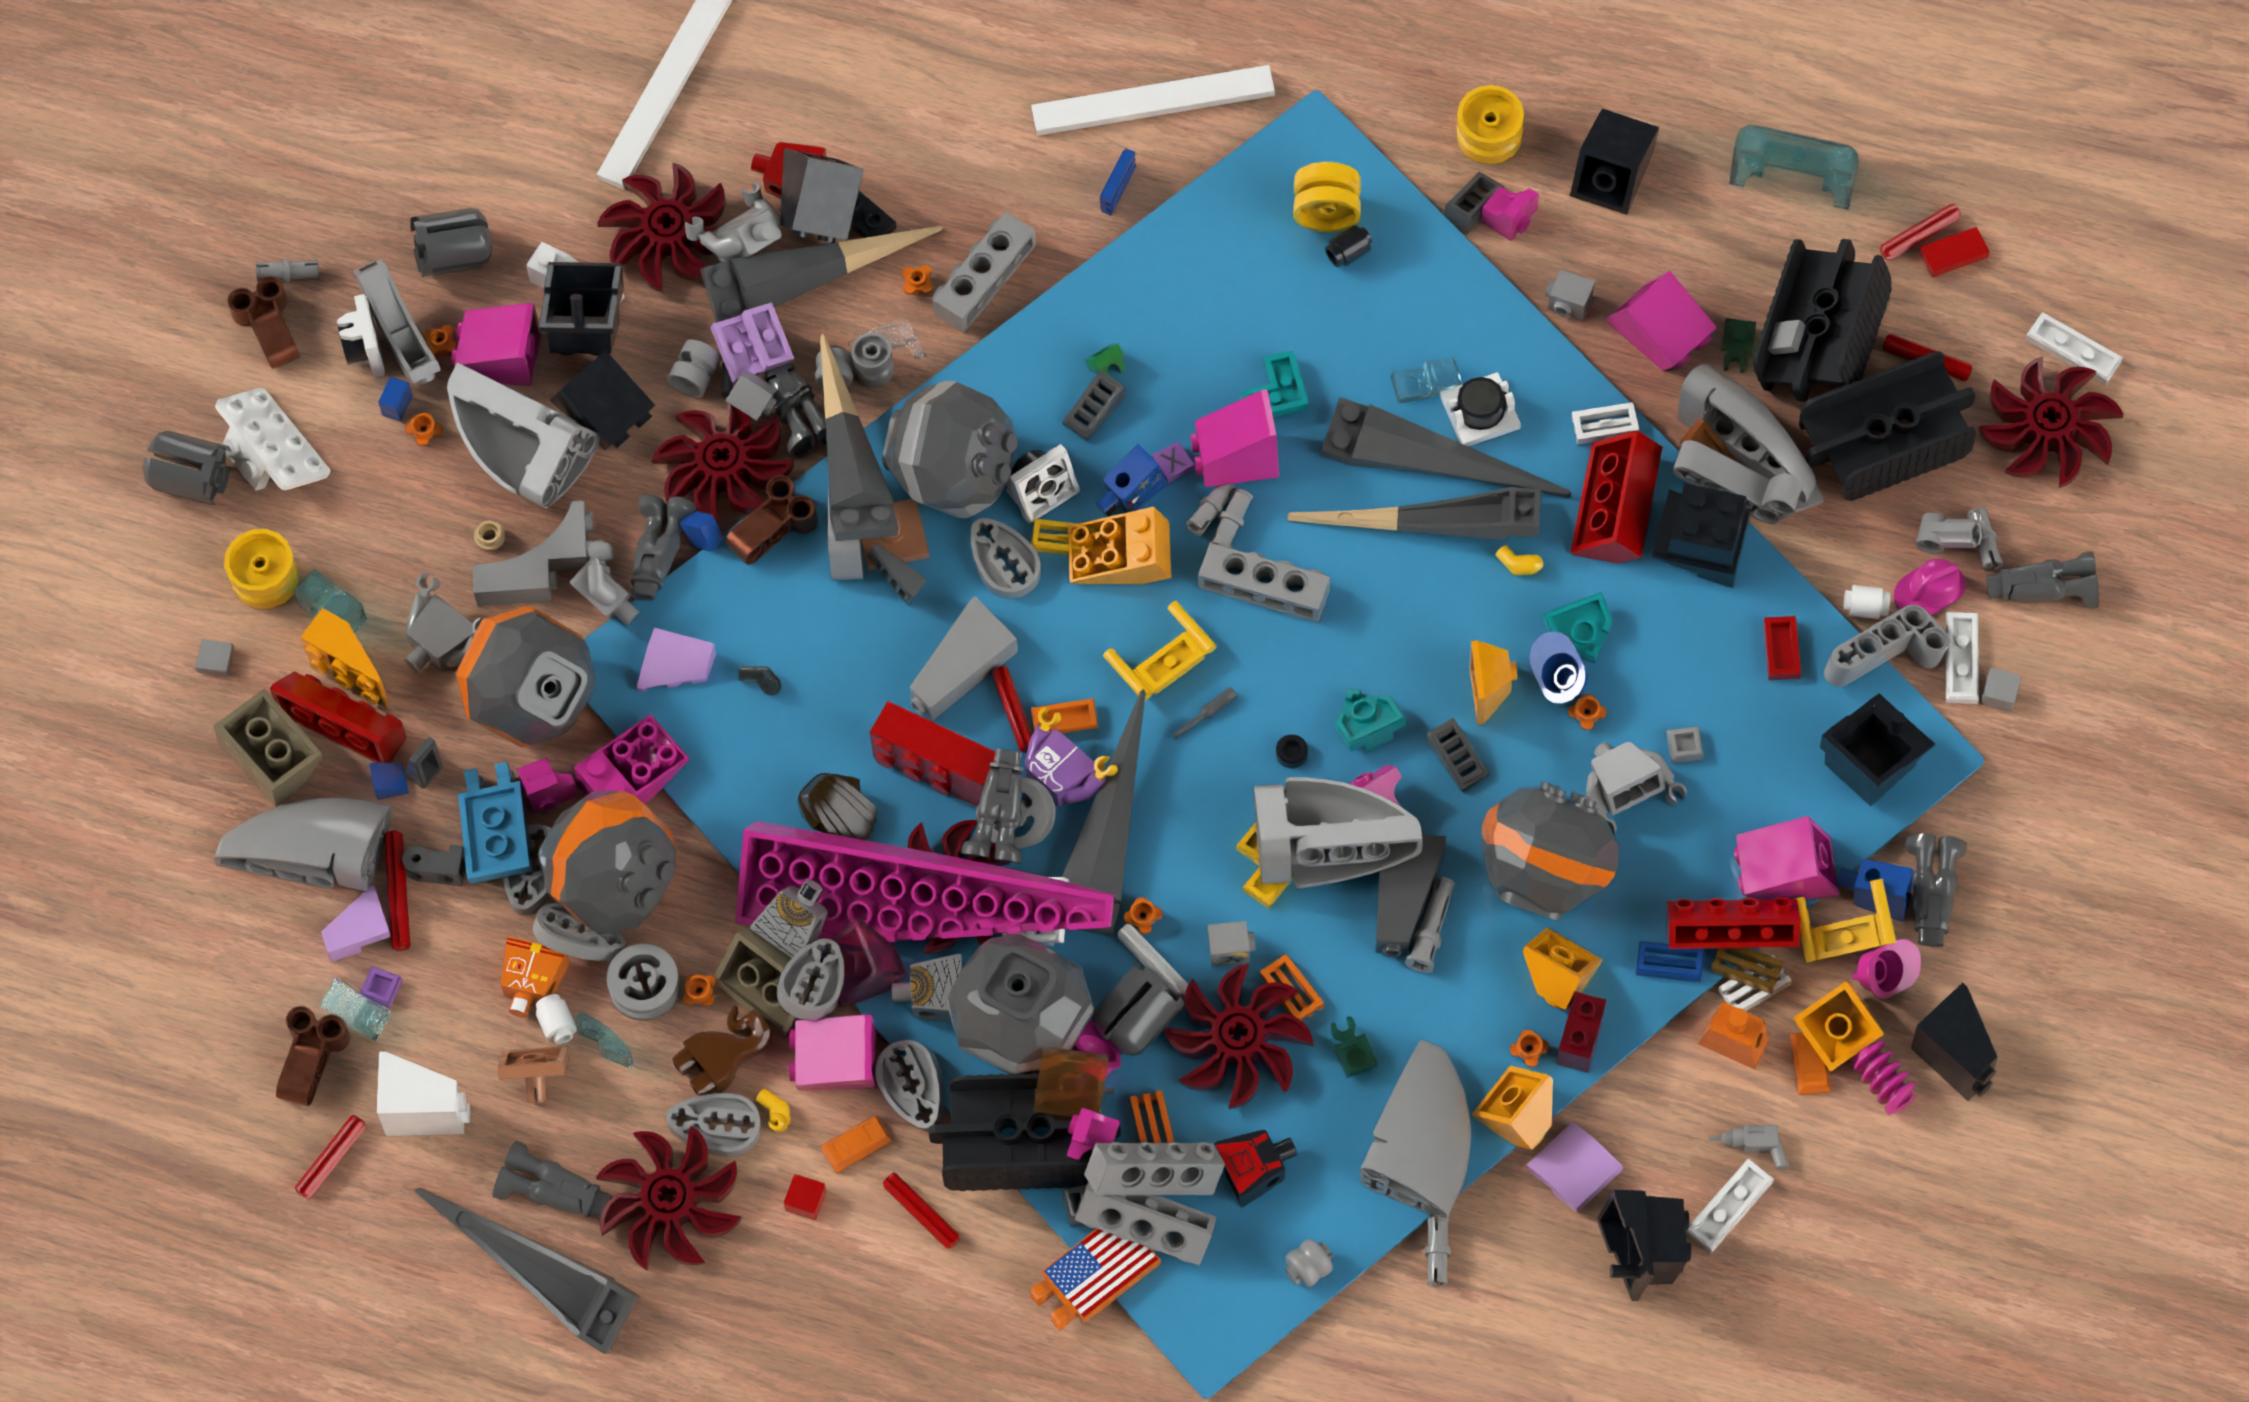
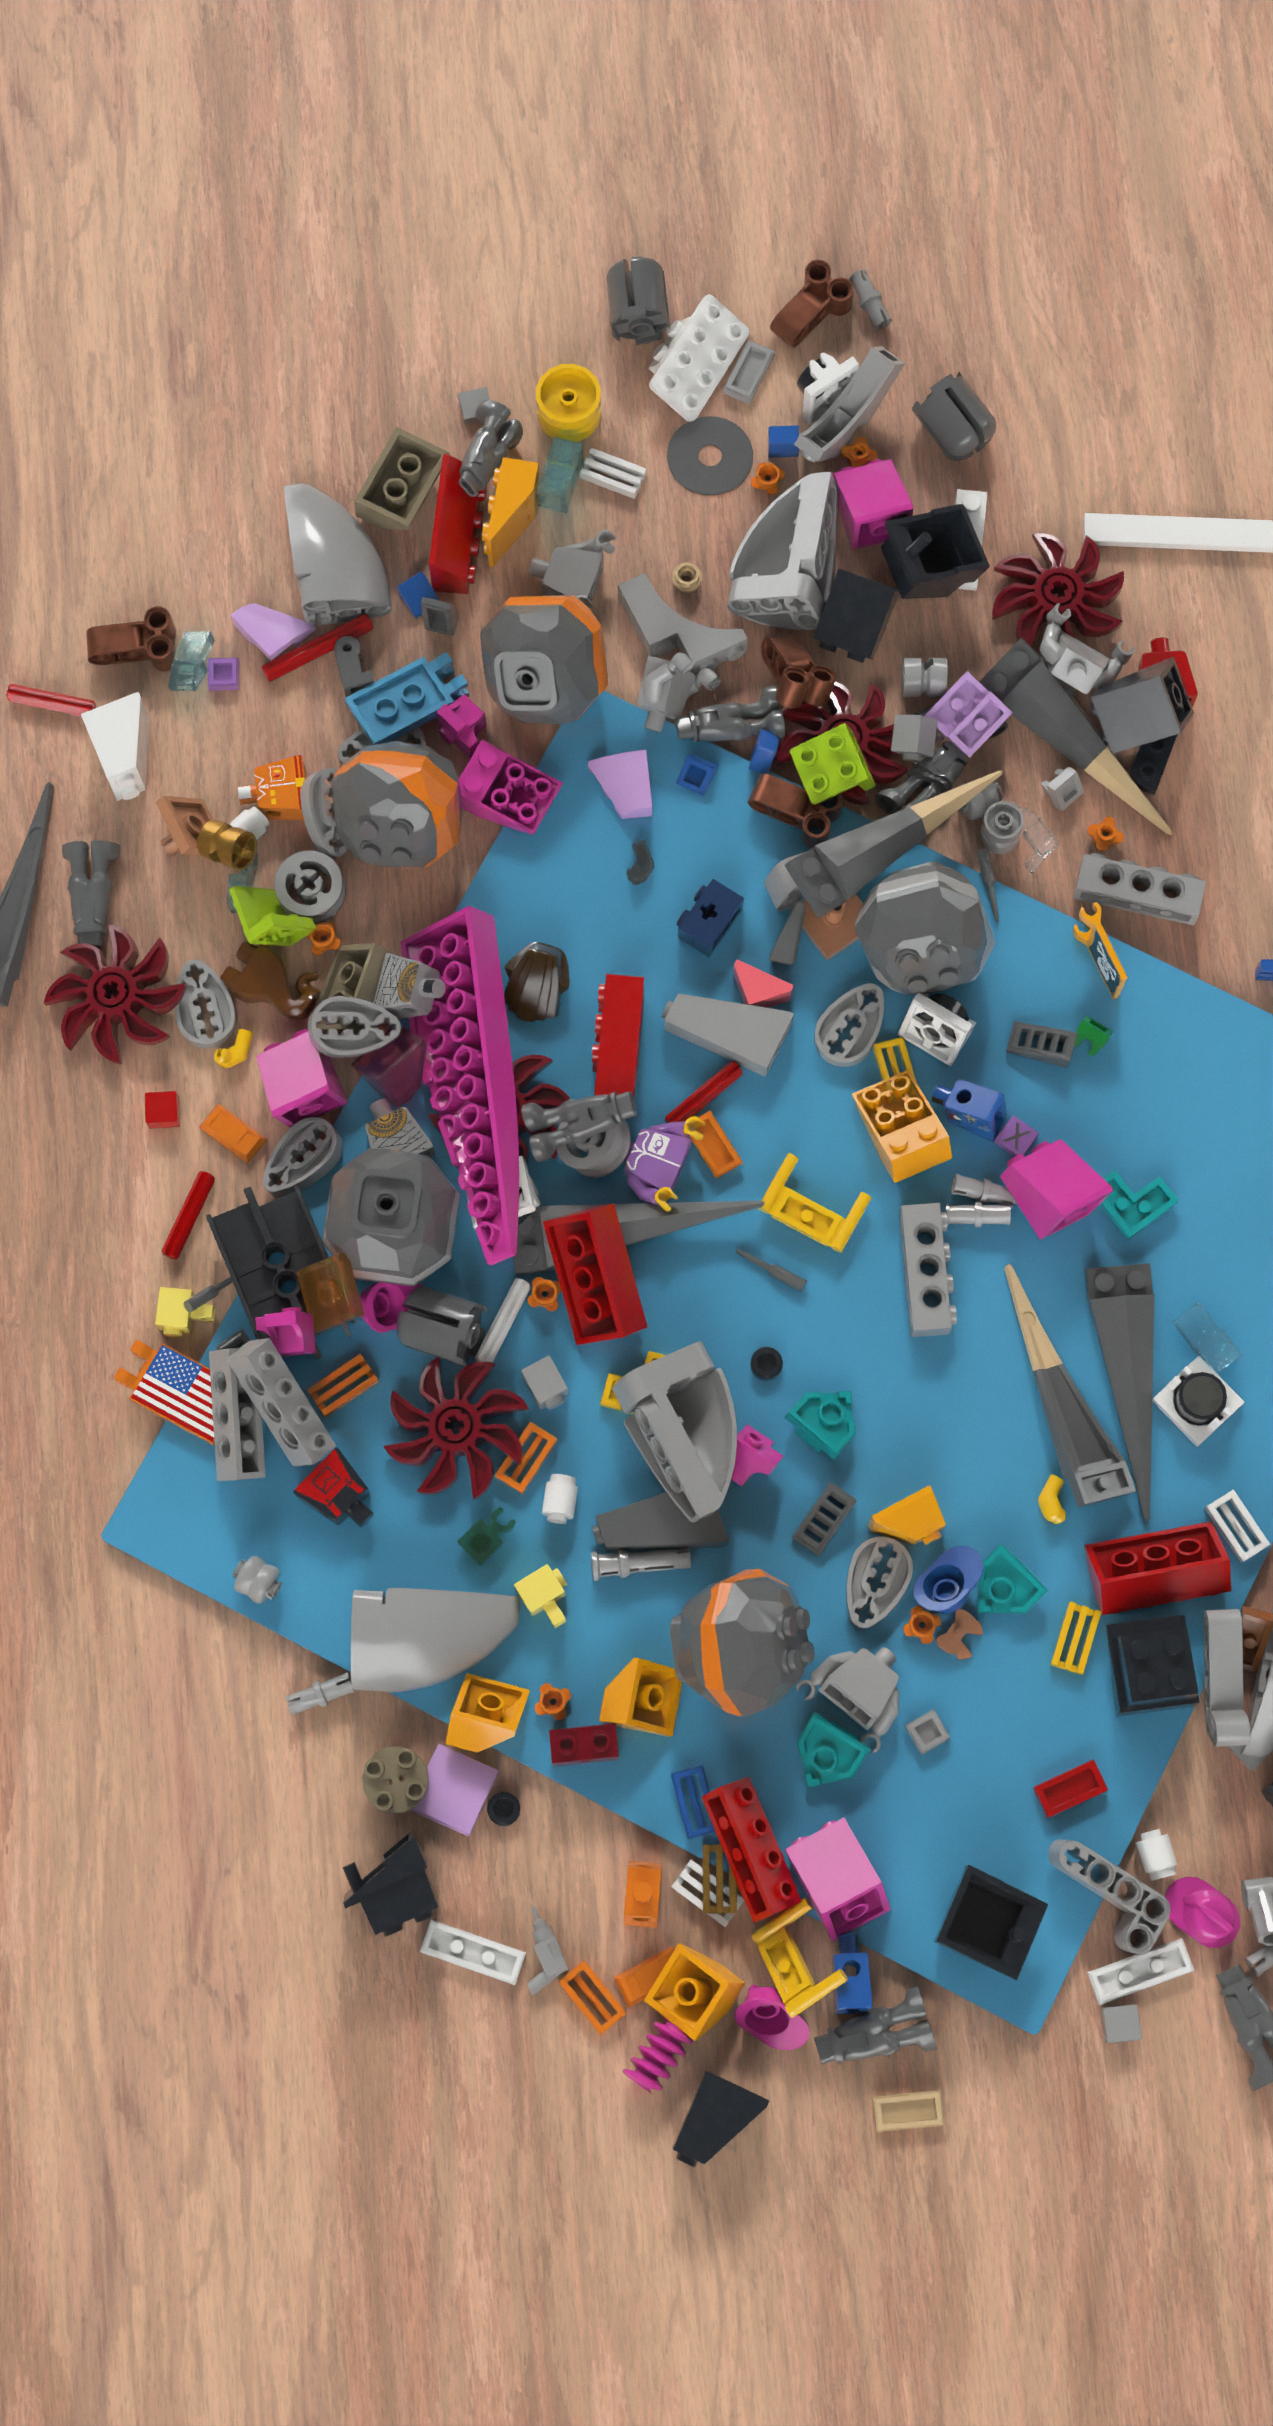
camera: 65 degrees right, 10 degrees up
(275, 650) = (488, 445): none -> dark grey piece
(305, 404) = (749, 372): none -> light grey tile
(363, 543) = (614, 462): none -> white tile
(378, 446) = (703, 479): none -> dark grey sticker
(569, 1035) = (227, 844): none -> pearl gold wheel
(638, 471) = (796, 672): none -> copper piece
(665, 1032) = (265, 919): none -> lime bracket
(694, 597) = (697, 774): none -> blue slope
(750, 471) = (831, 764): none -> lime bracket
(841, 620) = (707, 934): none -> dark blue brick
(858, 294) = (1063, 788): none -> light grey tile
(902, 388) = (988, 878): none -> dark grey piece
(931, 621) = (759, 987): none -> coral slope
(1012, 1214) = (205, 1295): none -> dark grey piece
(1015, 1249) = (174, 1318): none -> light yellow brick
(1034, 318) = (1101, 951): none -> light orange flag
(1149, 857) = (595, 1274): none -> red slope
(1344, 970) = (560, 1498): none -> white brick
(1425, 1019) = (542, 1591): none -> light yellow brick
(1539, 718) = (895, 1583): none -> light grey piece
(1563, 1210) = (400, 1795): none -> dark tan plate
(1609, 1131) = (503, 1809): none -> black tile
(1611, 694) = (951, 1641): none -> nougat piece
(1657, 582) = (1084, 1611): none -> yellow tile
(1671, 829) = (829, 1751): none -> teal plate
(1807, 1105) = (573, 1974): none -> orange tile
(2010, 891) = (908, 2111): none -> tan tile

